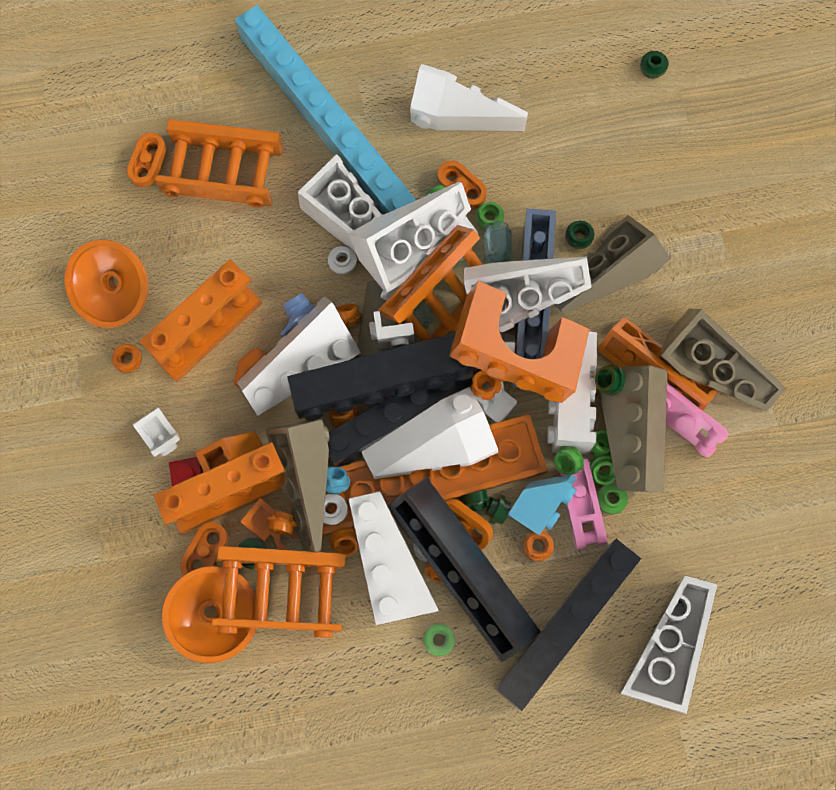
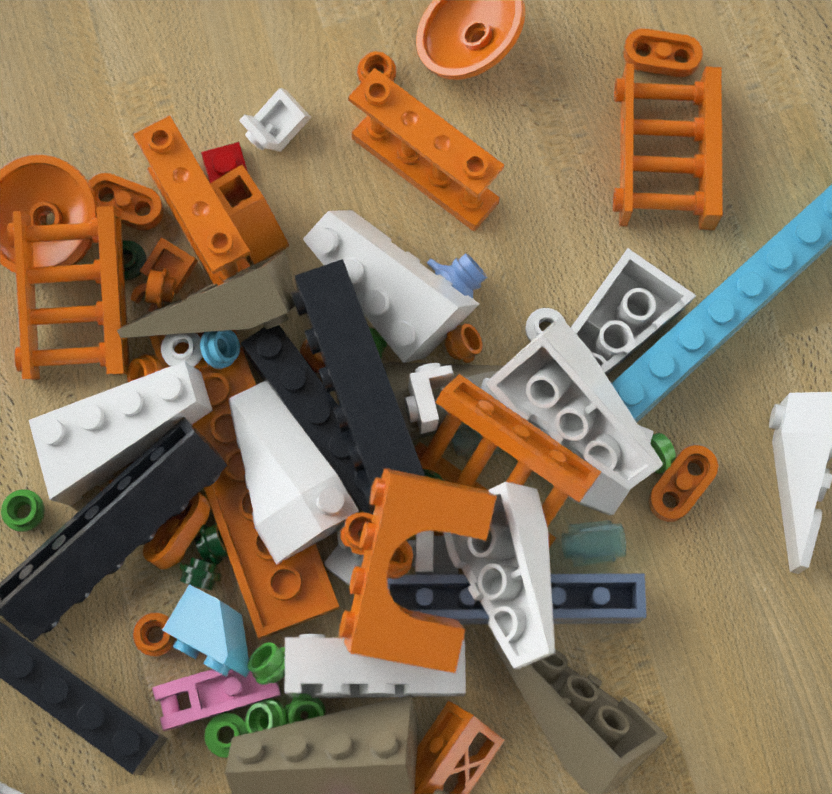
camera: 80 degrees right, 0 degrees up
(247, 363) = (384, 222): orange arm -> none
(489, 208) = (649, 520): bright green plate -> none
(580, 227) = (640, 661): dark green plate -> none
(610, 379) = (384, 710): dark green plate -> none

